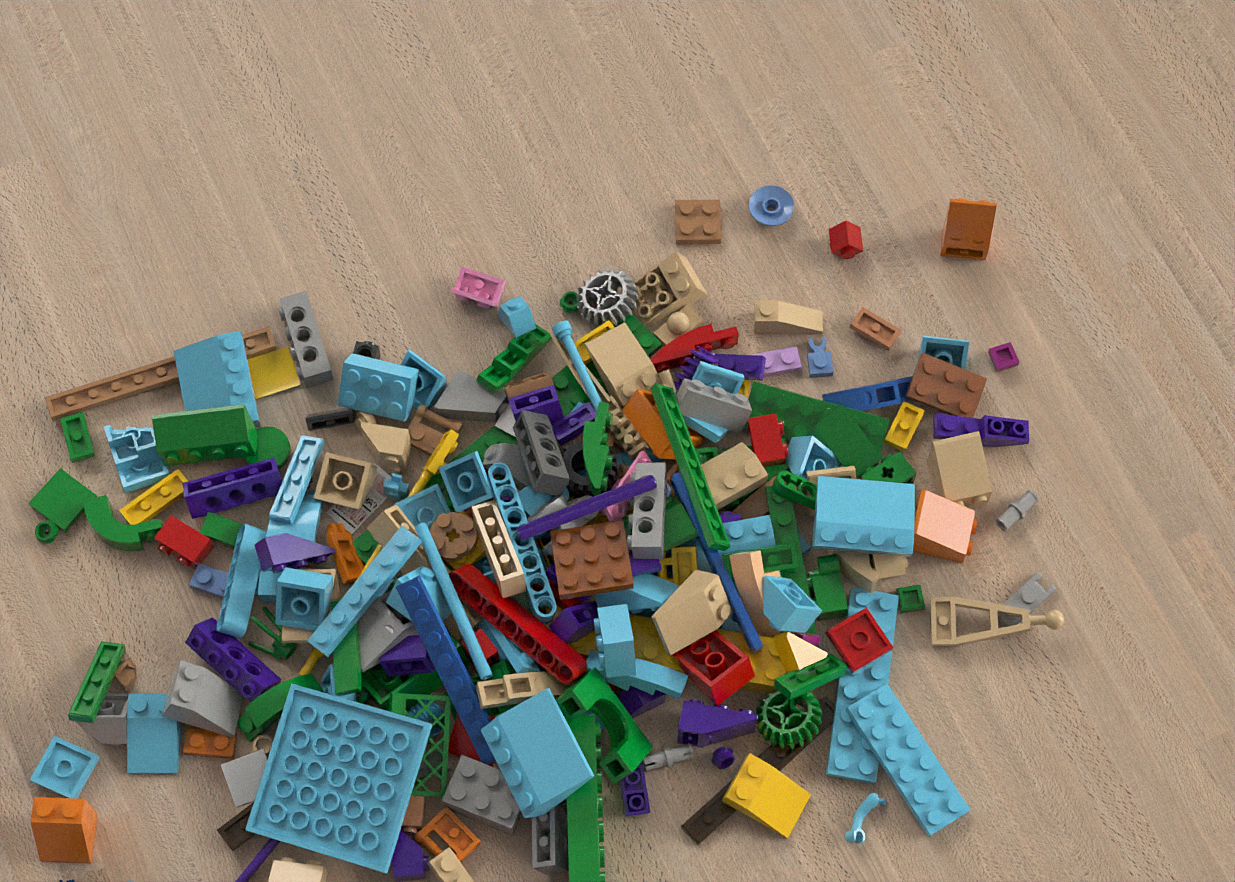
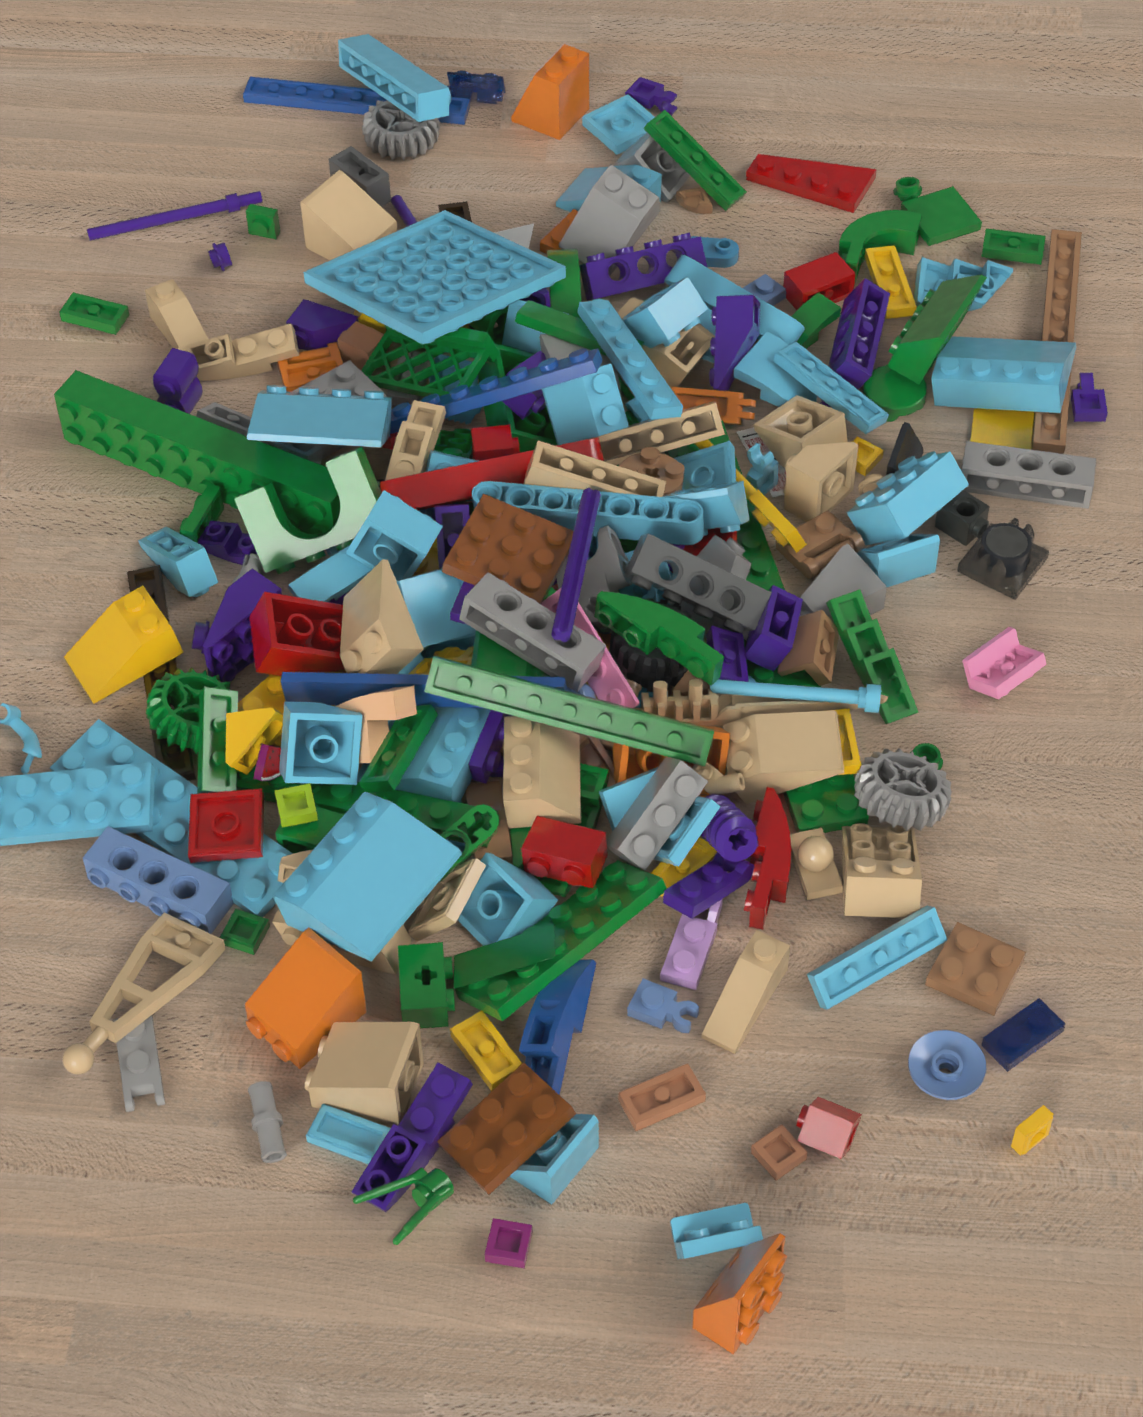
camera: 120 degrees right, 15 degrees down
(18, 769) = (651, 93): none -> dark purple plate
(61, 597) = (818, 181): none -> red wing
(178, 635) = (720, 252): none -> dark azure plate
(214, 327) = (1088, 403): none -> dark purple plate
(336, 444) = (867, 456): none -> yellow tile
(387, 325) = (1003, 558): none -> piece
(453, 601) = (561, 428): medium azure piece -> none
(516, 316) = (929, 673): medium azure slope -> none
(639, 819) = (206, 508): none -> green plate
(671, 814) = (181, 561): none -> medium azure slope
(717, 263) = (877, 957): none -> medium azure plate
(725, 183) = (1023, 1034): none -> clear blue plate
(784, 153) = (1032, 1130): none -> yellow tile
(829, 601) = (296, 805): none -> lime plate
(871, 260) = (779, 1152): none -> nougat plate
(911, 699) = (175, 880): none -> medium blue brick
(939, 262) = (714, 1231): none -> medium azure bracket
(997, 468) = (346, 1133): none -> medium azure tile
(1004, 406) = (429, 1193): none -> green plant

